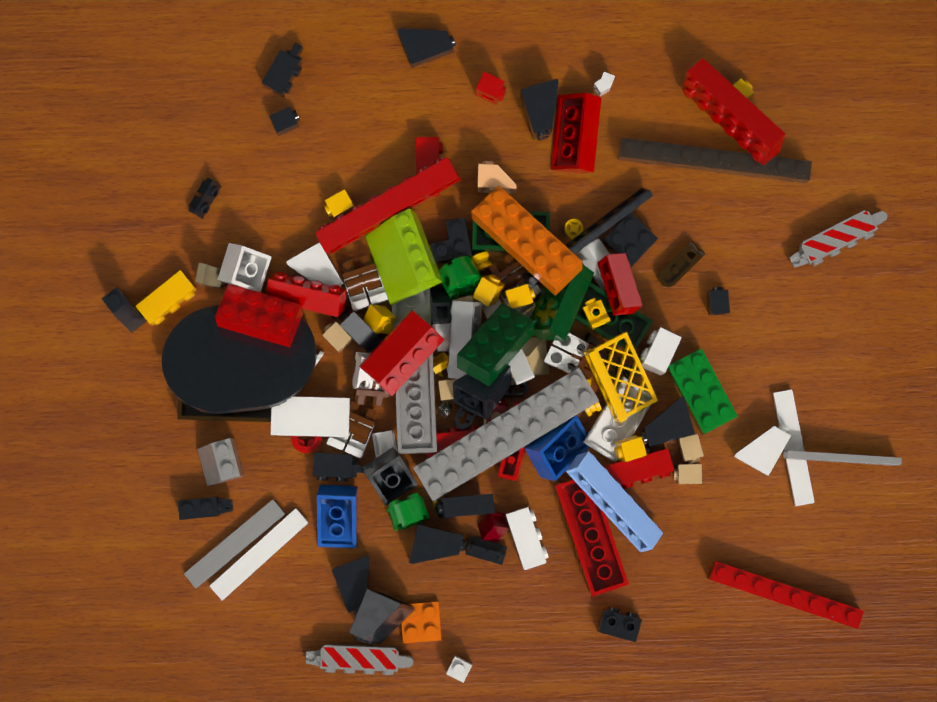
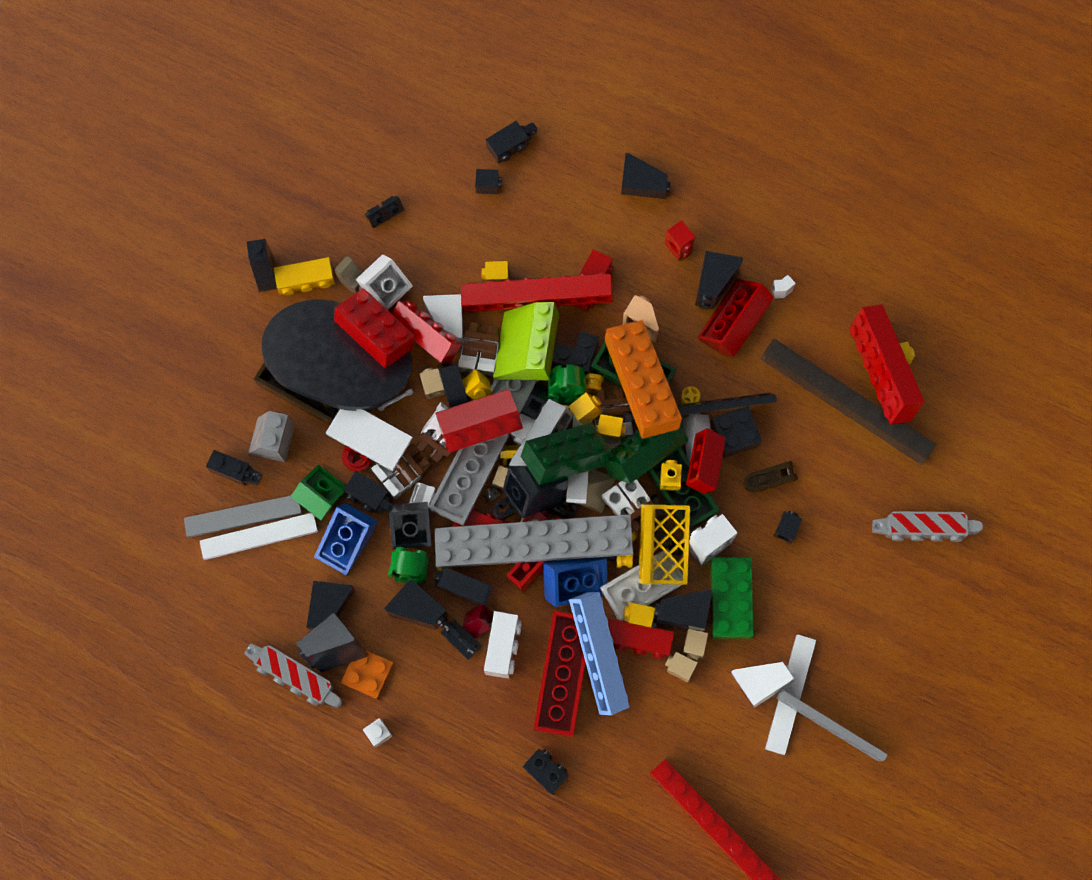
camera: 30 degrees right, 10 degrees down
(291, 487) = (319, 492): none -> green slope

